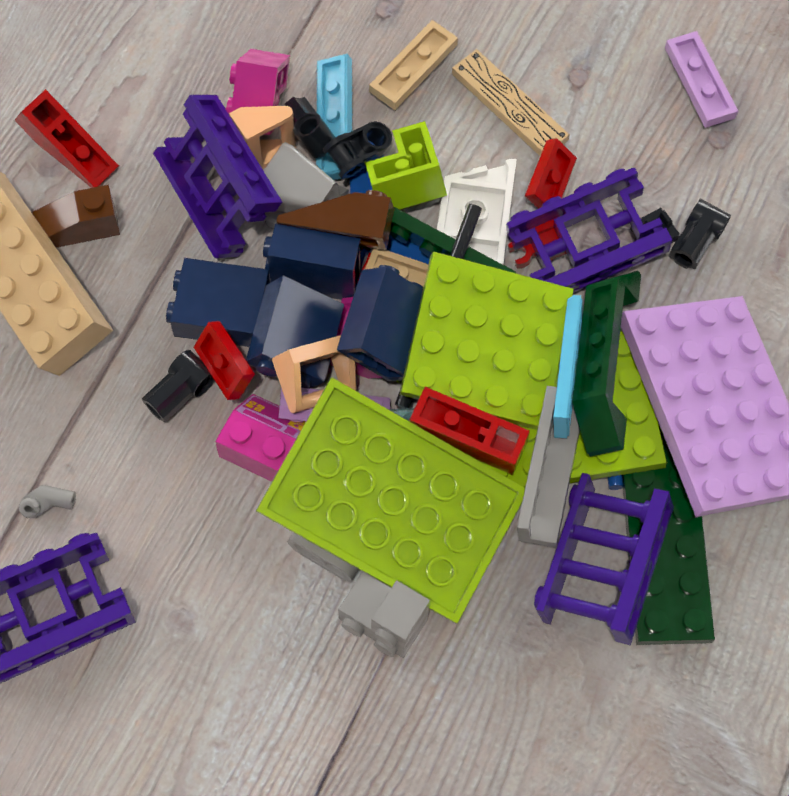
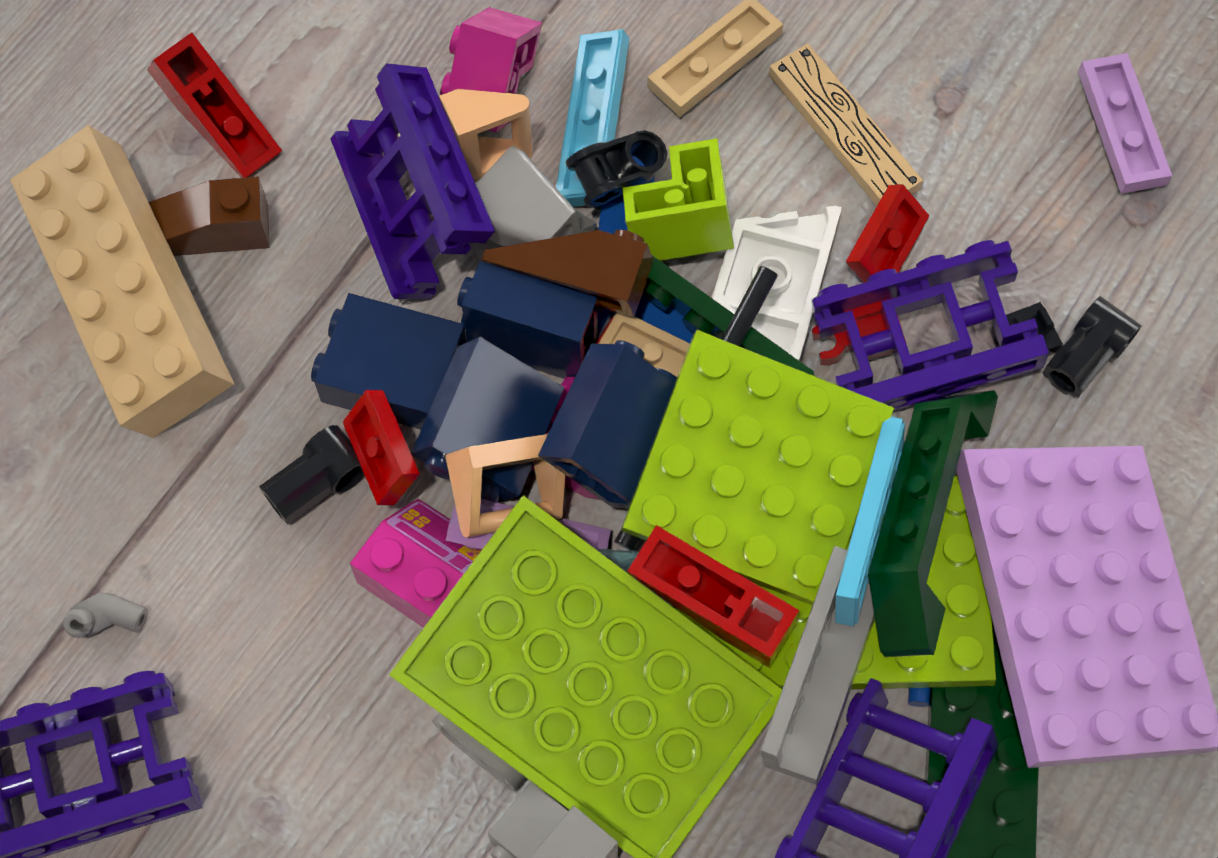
camera: 10 degrees right, 0 degrees up
(309, 127) = (552, 126): black piece -> none

